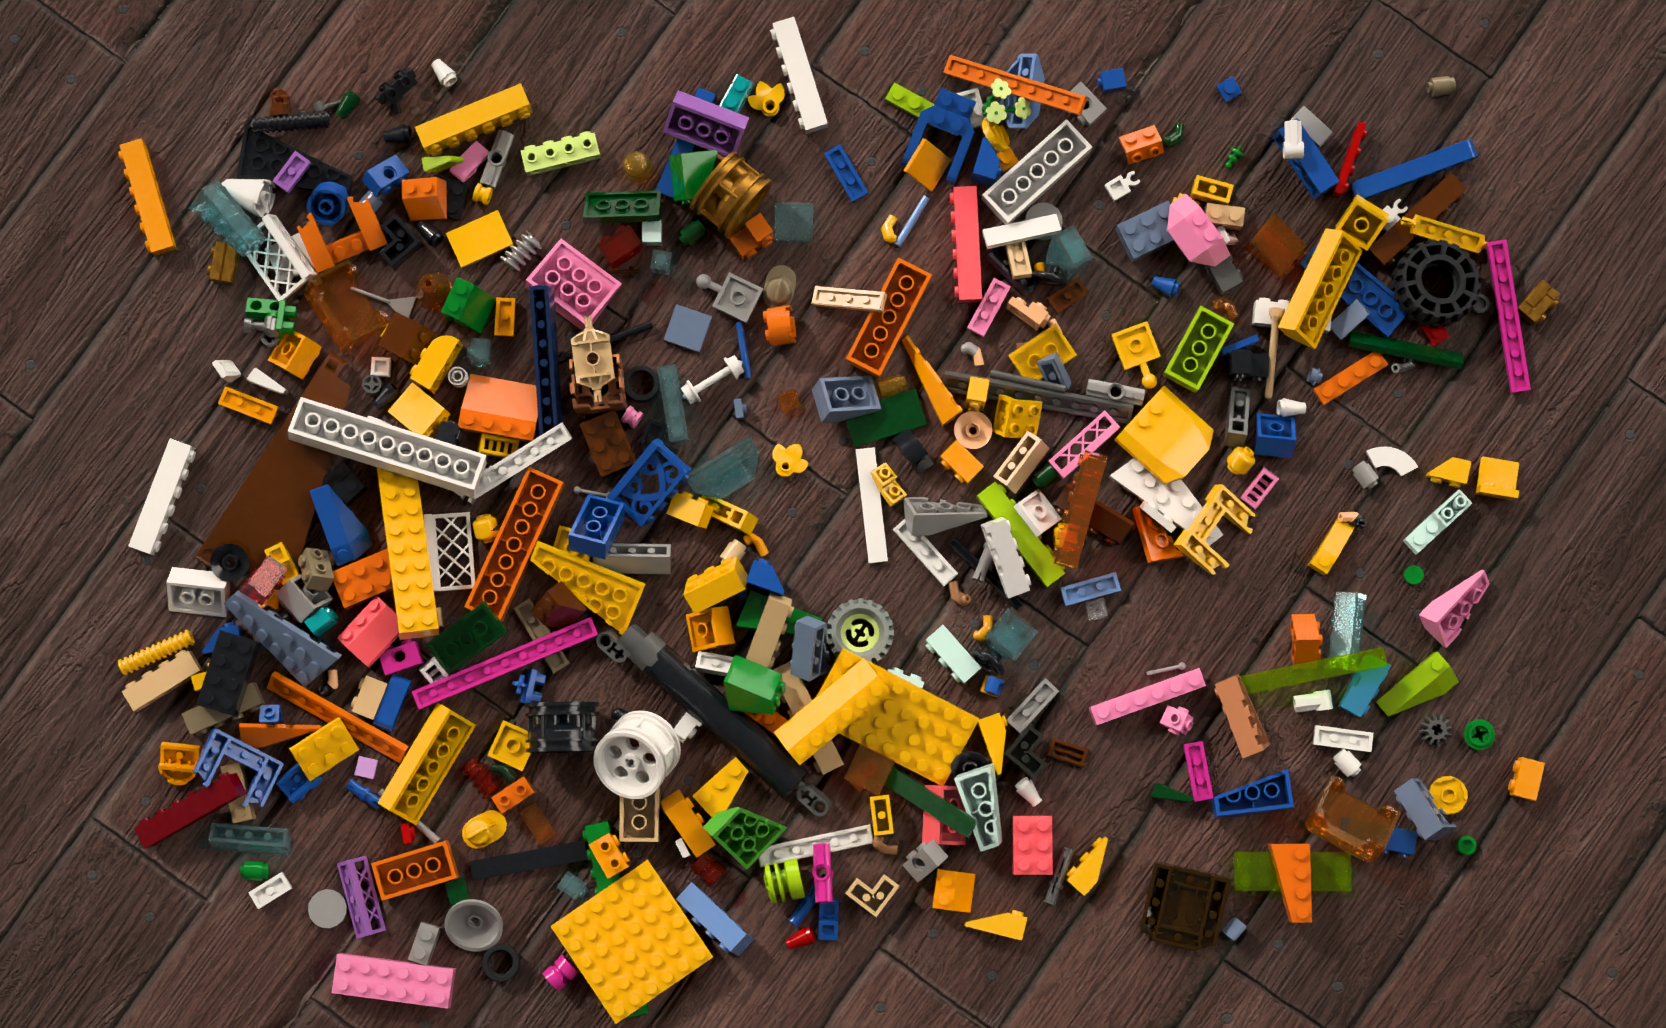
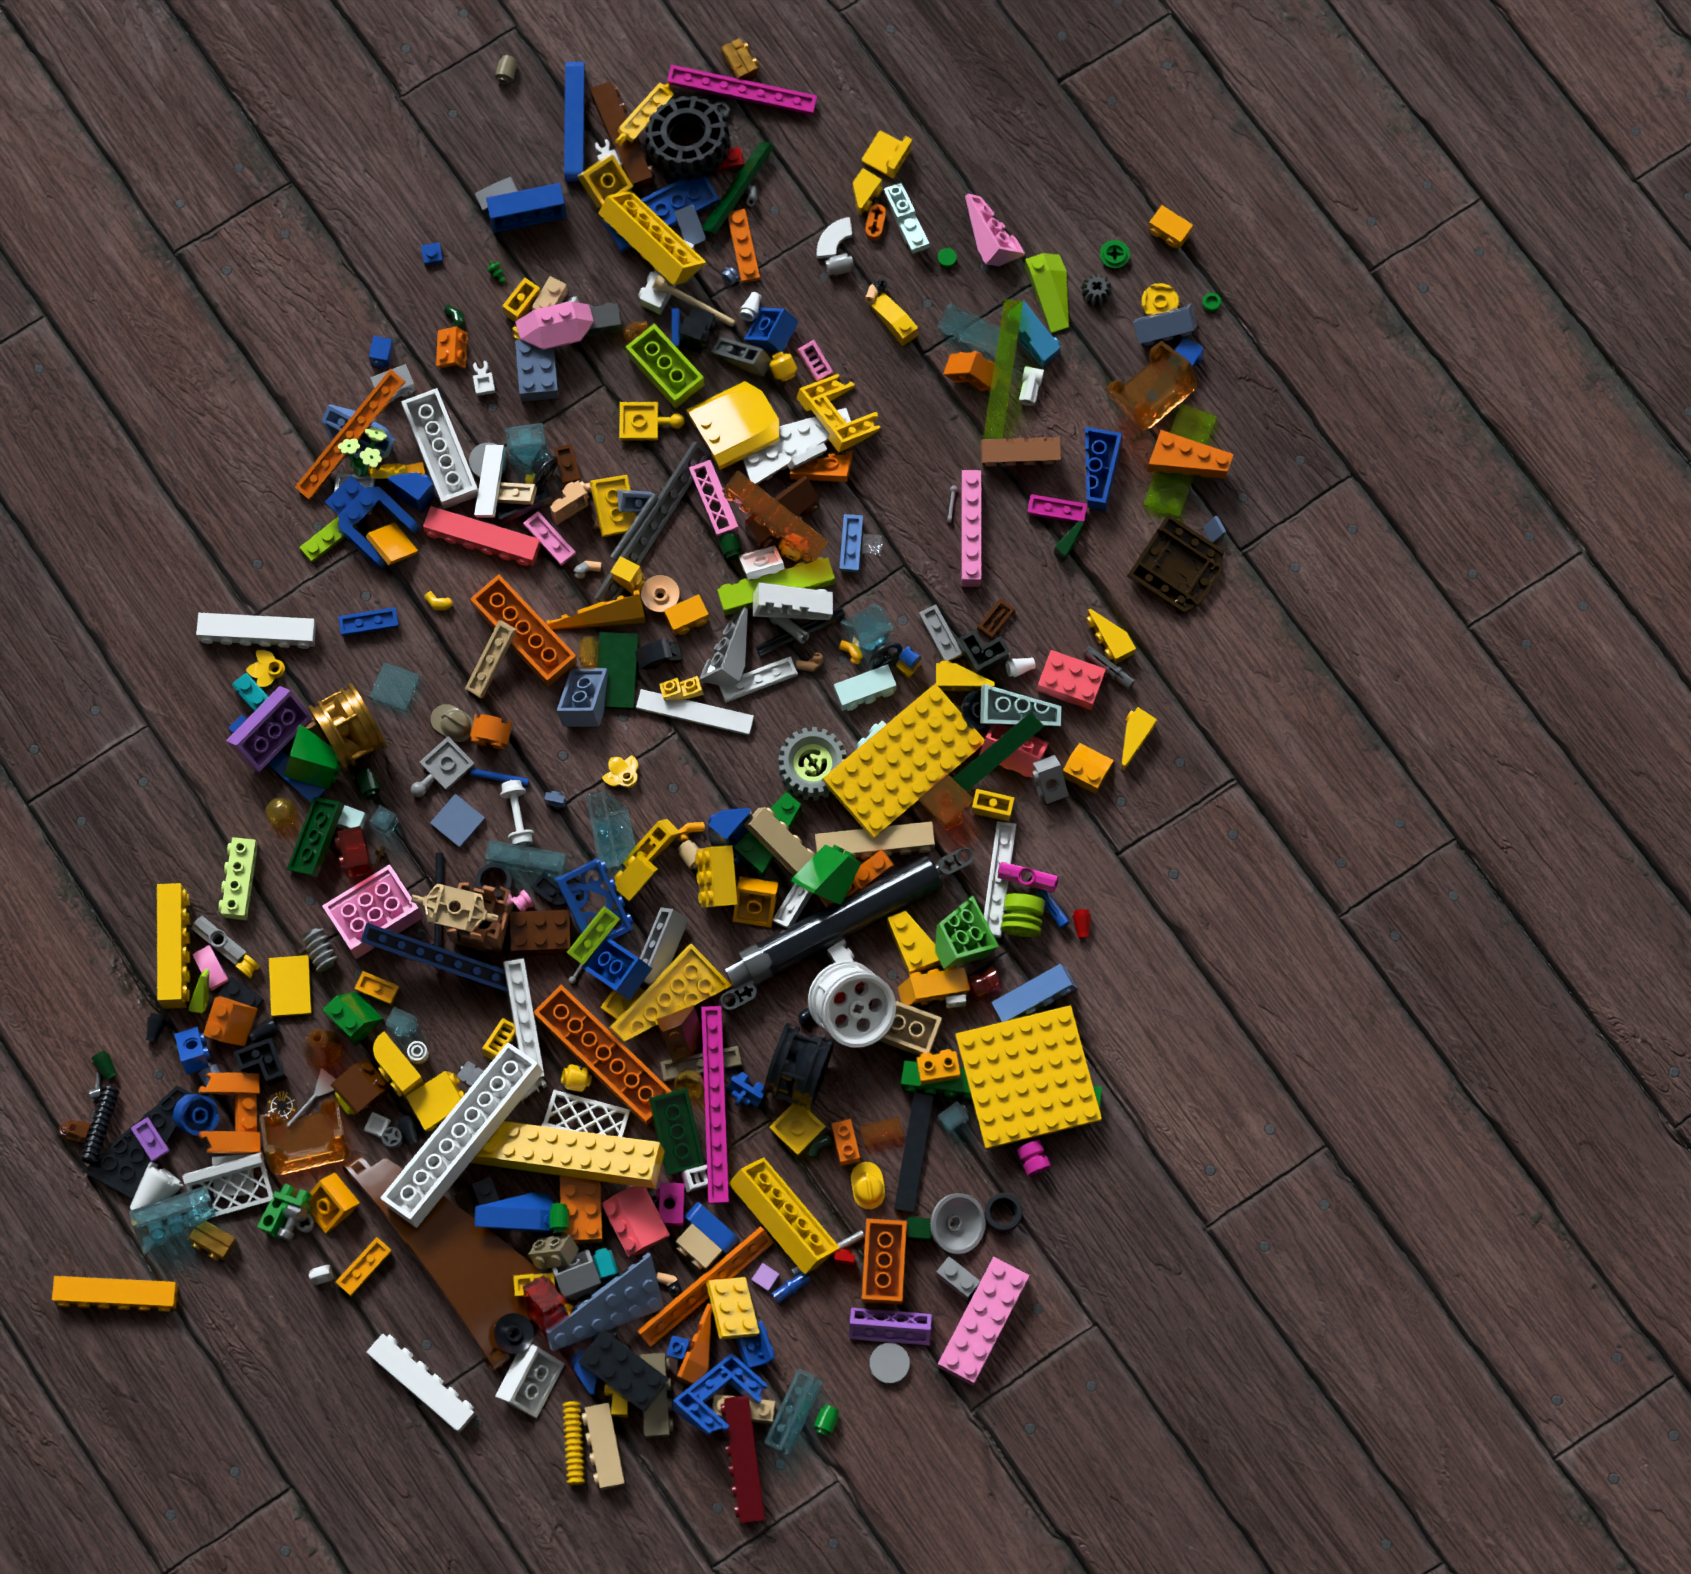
camera: 70 degrees left, 10 degrees down
(178, 762) = (691, 1457): light orange slope -> none
(260, 379) = (346, 1241): white slope -> none
(270, 890) = (851, 1412): white plate -> none
(345, 563) = (559, 1218): none -> green brick
(369, 275) = (282, 1104): none -> clear orange piece
(392, 92) = (108, 1010): black brick -> none
(444, 73) = (113, 961): white cone -> none
(480, 777) = (816, 1167): clear red piece -> none
(500, 408) = (465, 1021): orange slope -> none
(517, 633) = (692, 1081): none -> clear yellow hair
(618, 493) = (593, 935): none -> lime plate
(752, 237) = (393, 723): orange brick -> none
(788, 400) = (565, 753): clear orange tile -> none
(809, 649) = (811, 810): sand blue wedge -> none
(828, 920) = (1074, 892): blue slope -> none
(831, 711) = (878, 808): yellow slope -> none
(872, 899) = (1068, 839): tan brick -> none
(884, 848) = (1023, 817): medium nougat arm -> none
(912, 220) = (438, 579): medium blue bar -> none
(1016, 417) = (663, 550): yellow bracket -> none
(1021, 462) = (708, 559): tan brick -> none
(1127, 394) = (681, 445): light grey piece -> none
(1166, 285) = (593, 373): blue cone -> none
(1177, 720) = (1003, 509): bright pink brick -> none
(1276, 246) = (595, 263): clear orange slope -> none
(1293, 146) = (510, 209): white piece -> none
(1343, 738) = (1074, 372): white plate -> none
(1347, 763) = (1098, 376): white brick -> none
(1352, 152) = (536, 168): red plate -> none
(1423, 498) = (872, 221): none -> orange beam

